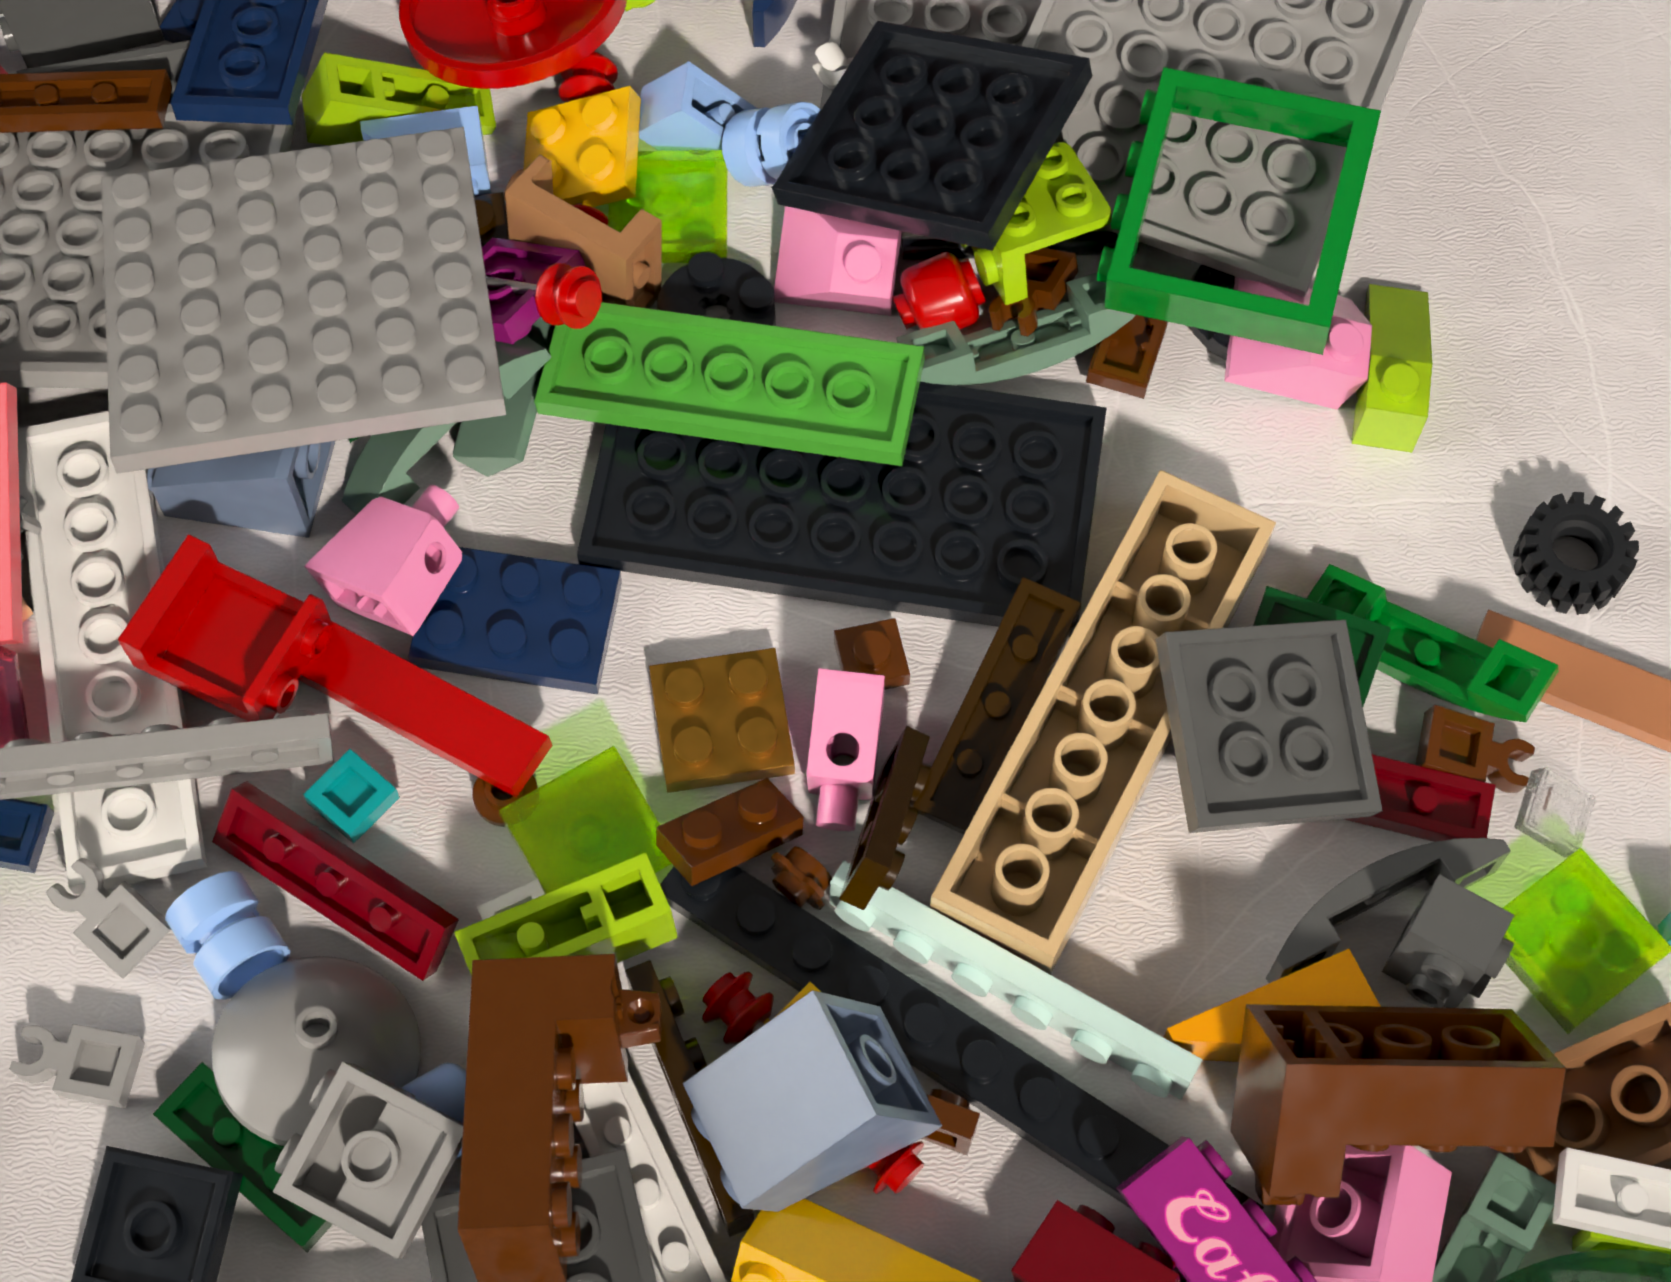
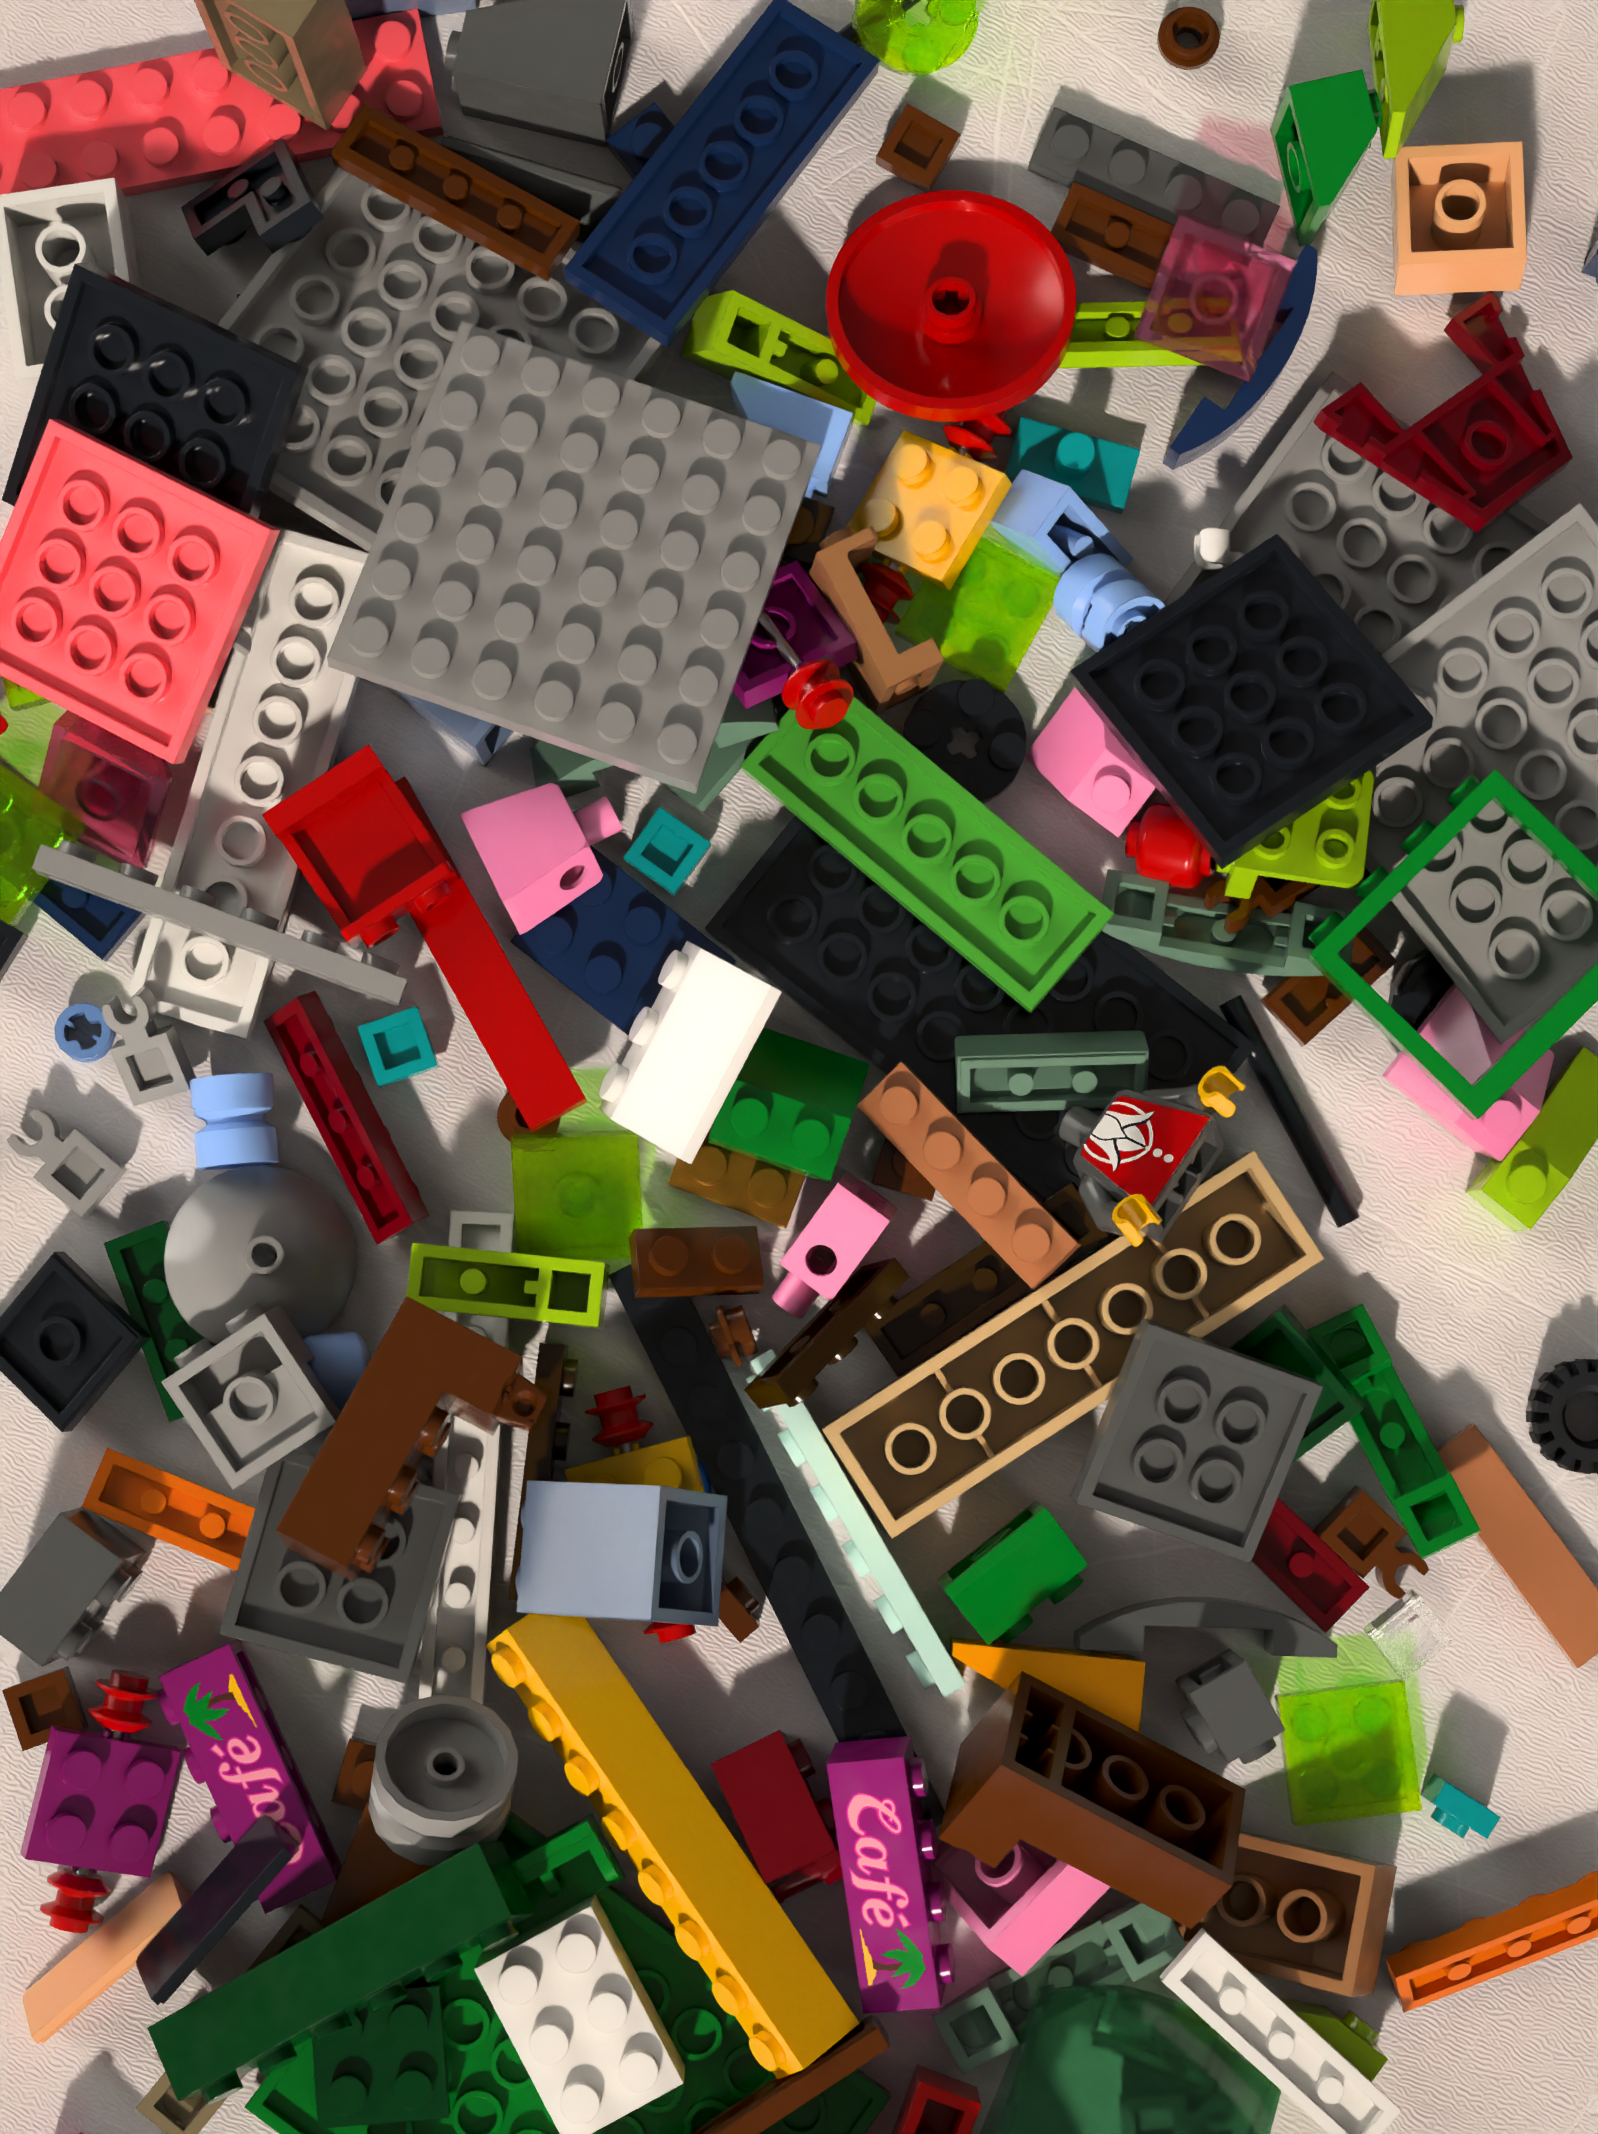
camera: 25 degrees right, 20 degrees up
(37, 960) = (74, 1048): none -> medium blue bush
(509, 515) = (667, 851): none -> teal plate
(619, 643) = (687, 1050): none -> white slope
(677, 48) = (1089, 465): none -> teal tile
(738, 654) = (791, 1105): none -> green slope
(930, 621) = (968, 1175): none -> nougat plate
(949, 512) = (1048, 1070): none -> sand green slope
(1076, 512) = (1148, 1152): none -> torso
(1177, 457) = (1291, 1115): none -> black bar
(1183, 940) = (1014, 1574): none -> green slope

